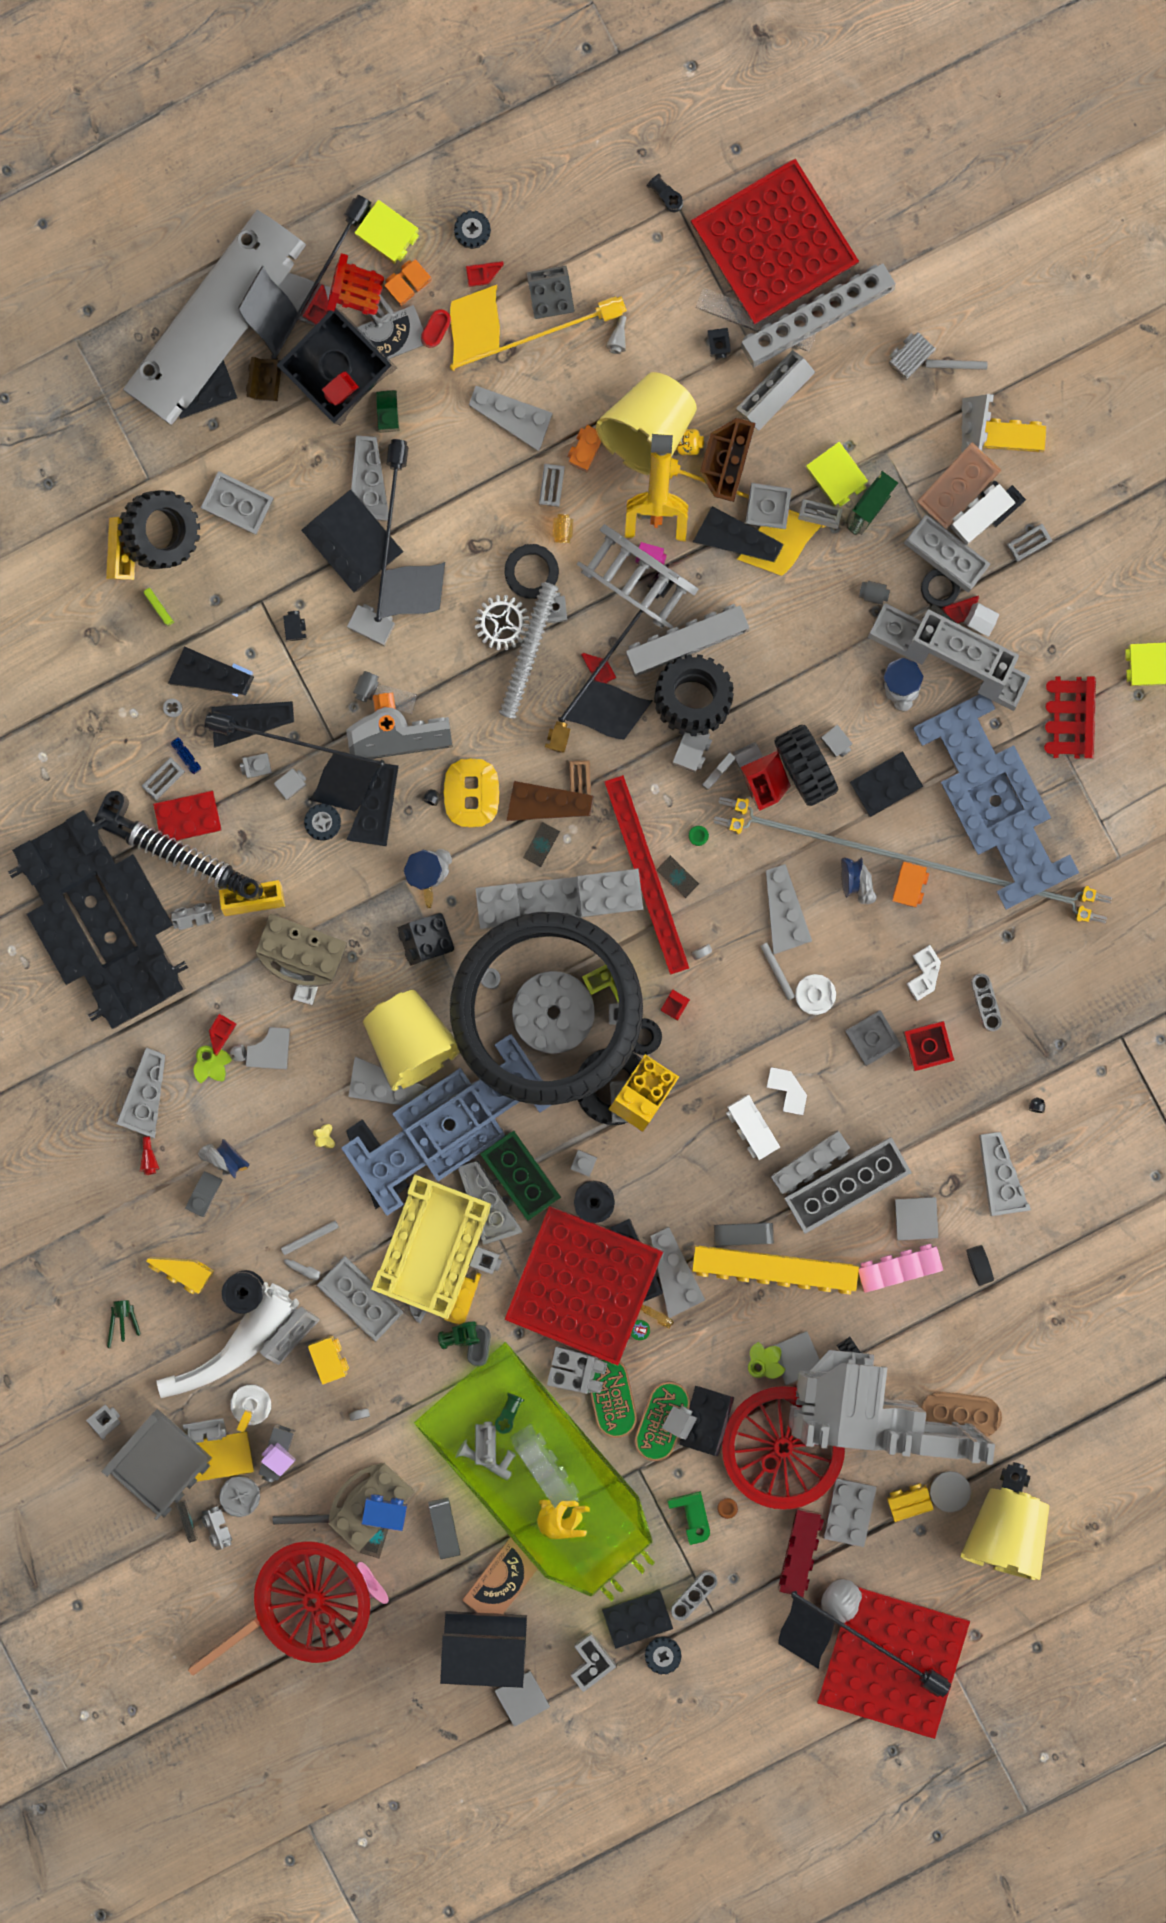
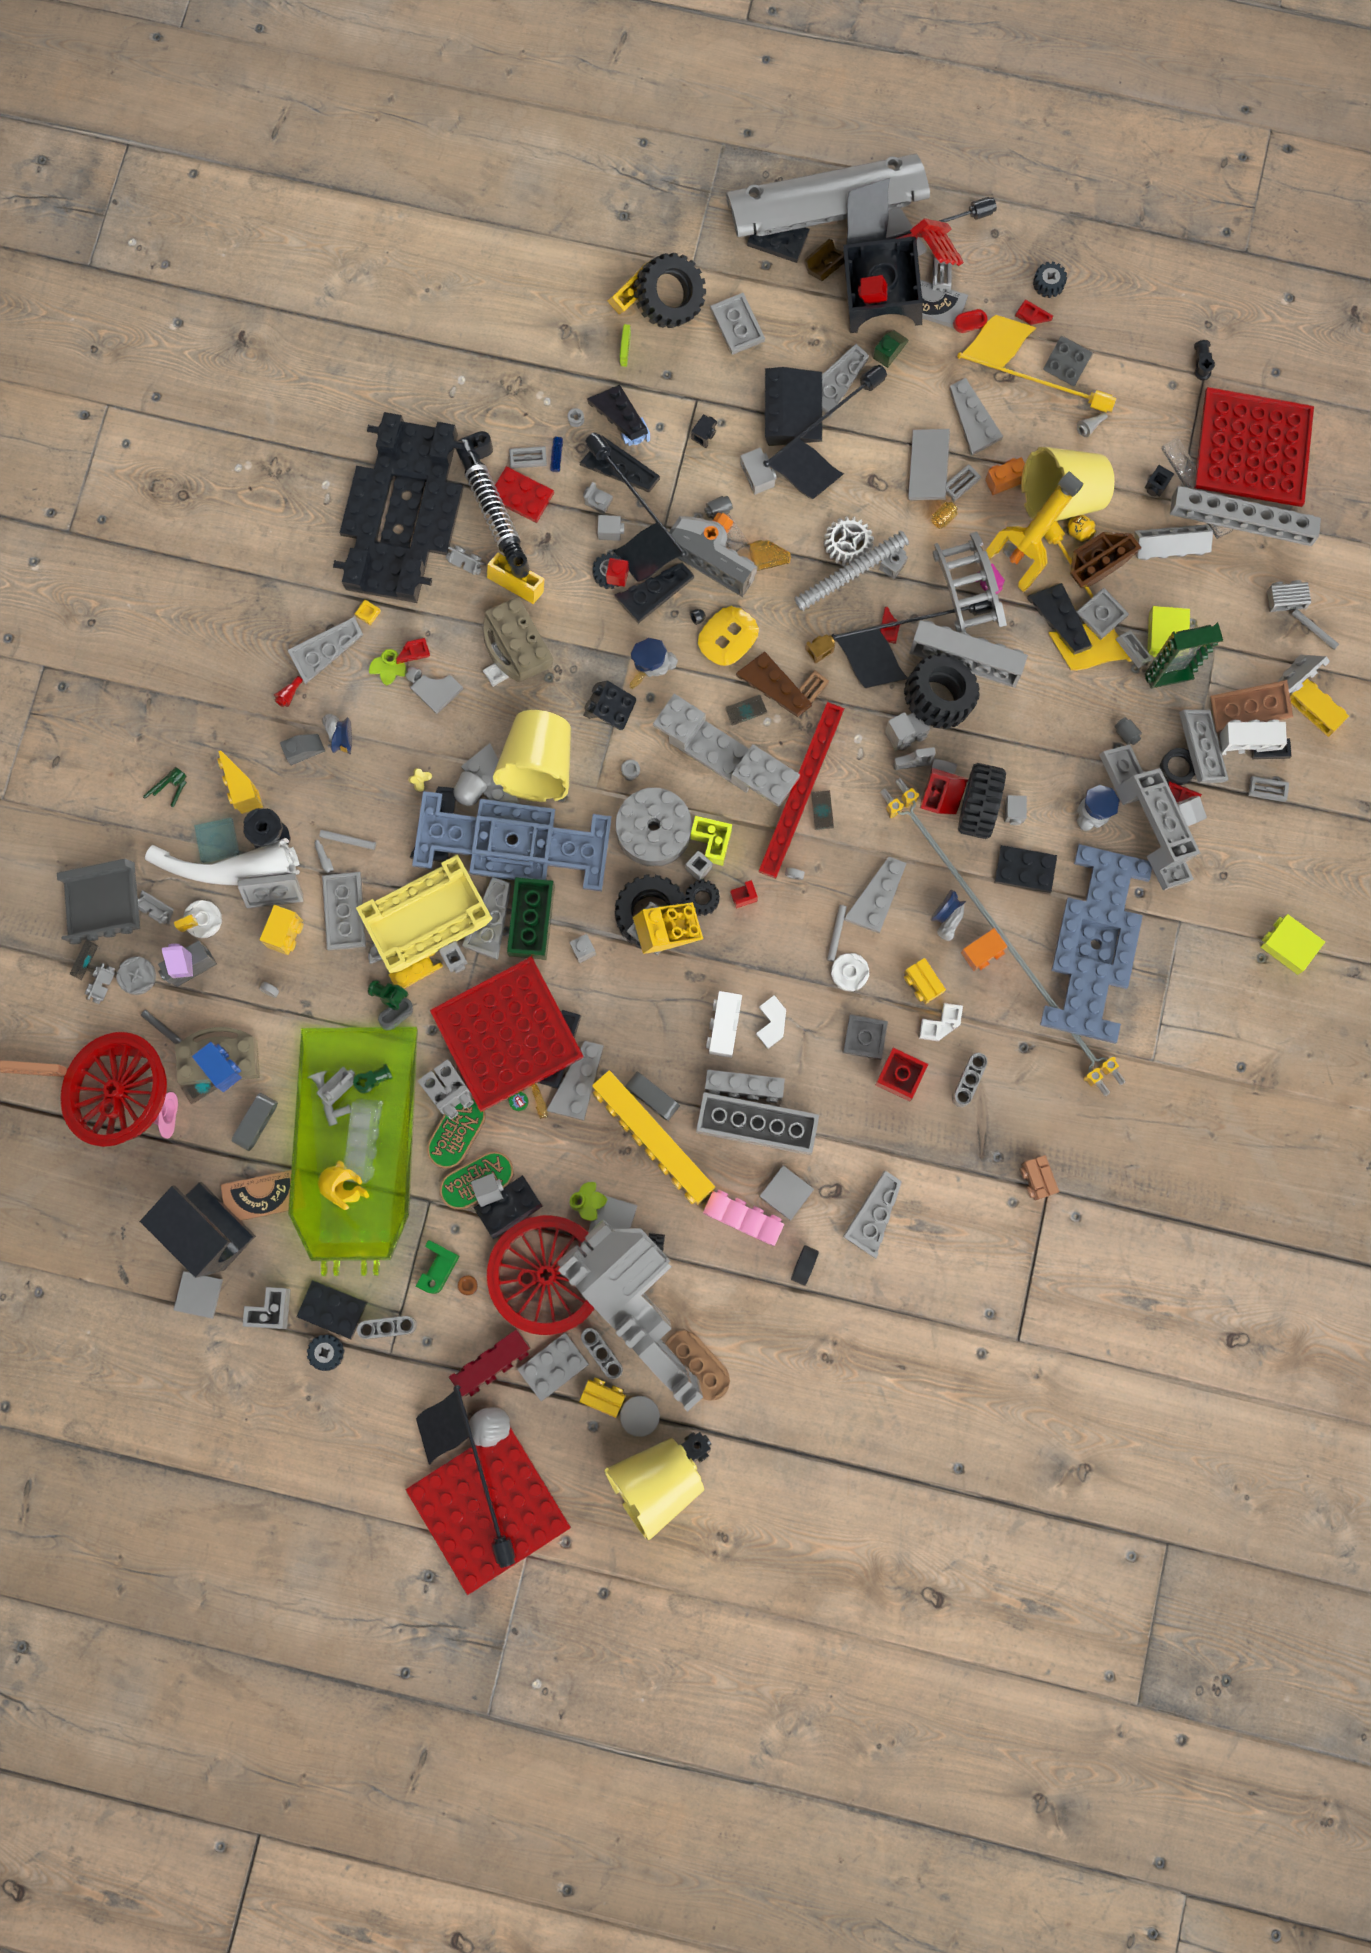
camera: 40 degrees right, 10 degrees down
(97, 1419) = (92, 842): light grey brick -> none
(150, 1032) = (367, 612): none -> yellow tile
(202, 1330) = (216, 840): none -> clear light blue tile
(229, 1456) = (150, 938): yellow tile -> none
(335, 822) = (617, 572): none -> red brick
(373, 1111) = (469, 789): none -> light grey hair
(387, 232) = (990, 235): neon yellow brick -> none
(414, 274) = (985, 277): orange piece -> none
(443, 694) = (768, 555): none -> clear yellow slope
(483, 955) = (650, 740): black tyre -> none
(511, 493) = (929, 464): none -> light grey tile
(516, 555) = (903, 508): black tyre -> none
(598, 1212) = (564, 968): black piece -> none
(698, 835) = (861, 794): green tile -> none
(871, 1463) = (600, 1343): none -> light grey beam
(883, 952) = (924, 981): none -> yellow brick
(1037, 1105) = (944, 1186): black hinge -> none
(1072, 707) = (1199, 942): red fence -> none
(1107, 1035) = (1039, 1178): none -> nougat brick

